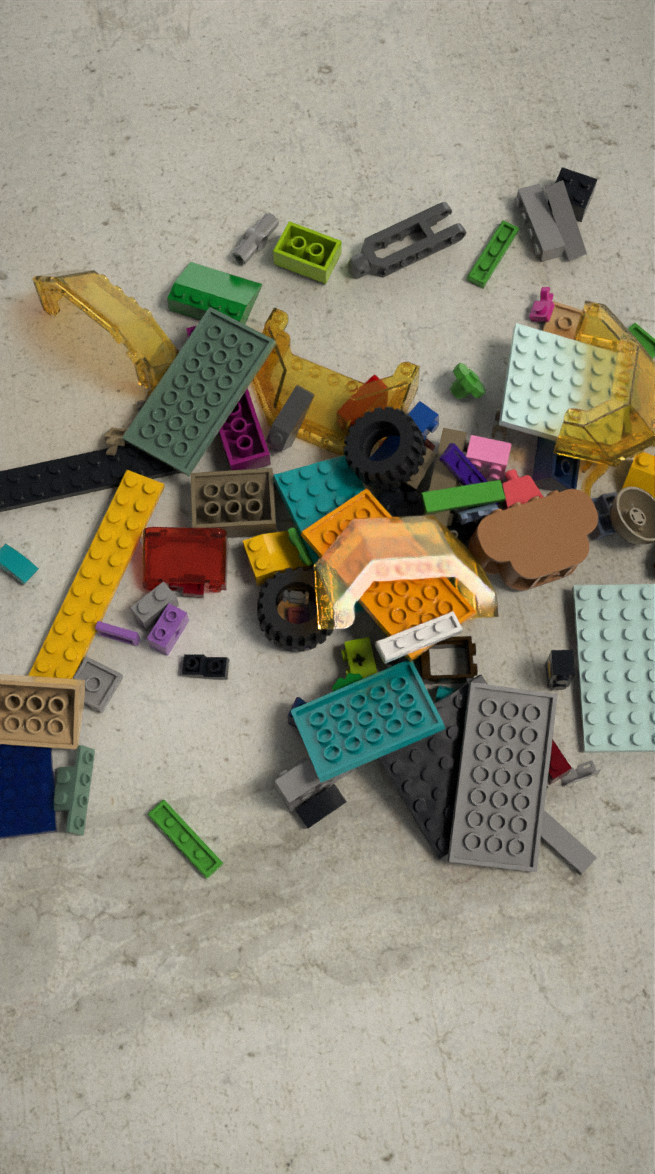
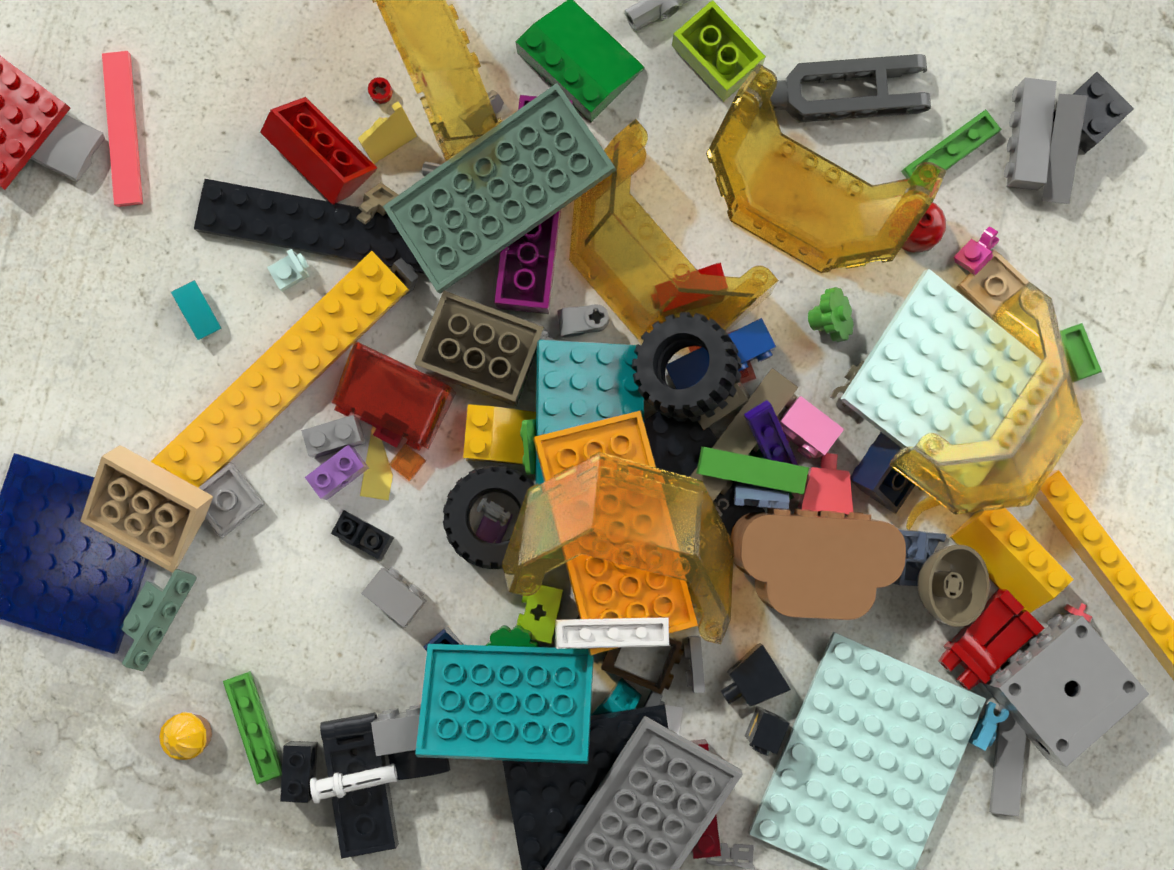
camera: 25 degrees right, 15 degrees up
(56, 423) = (317, 149): none -> red slope
(71, 510) = (289, 270): none -> light aqua bracket
(82, 364) = (379, 98): none -> red bush
(103, 393) = (387, 134): none -> light yellow slope
(118, 633) = (277, 450): medium lavender tile -> none
(135, 867) = (185, 736): none -> yellow piece
(157, 475) = (405, 273): none -> dark grey plate
(198, 624) = (378, 477): none -> light yellow sticker
(215, 603) = (407, 462): none -> clear orange tile
(234, 851) = (297, 770): none -> black brick
(249, 697) = (395, 596): none -> light grey brick
(271, 842) = (340, 784): none -> white pin
(284, 841) = (365, 815): none -> black hinge
(290, 419) = (592, 272): dark grey slope -> none
(296, 456) = (576, 320): none -> light grey piece
(411, 321) = (804, 199): none -> clear yellow windscreen
(491, 656) = (695, 675): none -> light grey plate
(495, 306) = (928, 231): none -> red cylinder
(535, 641) = (755, 678): none -> black torso

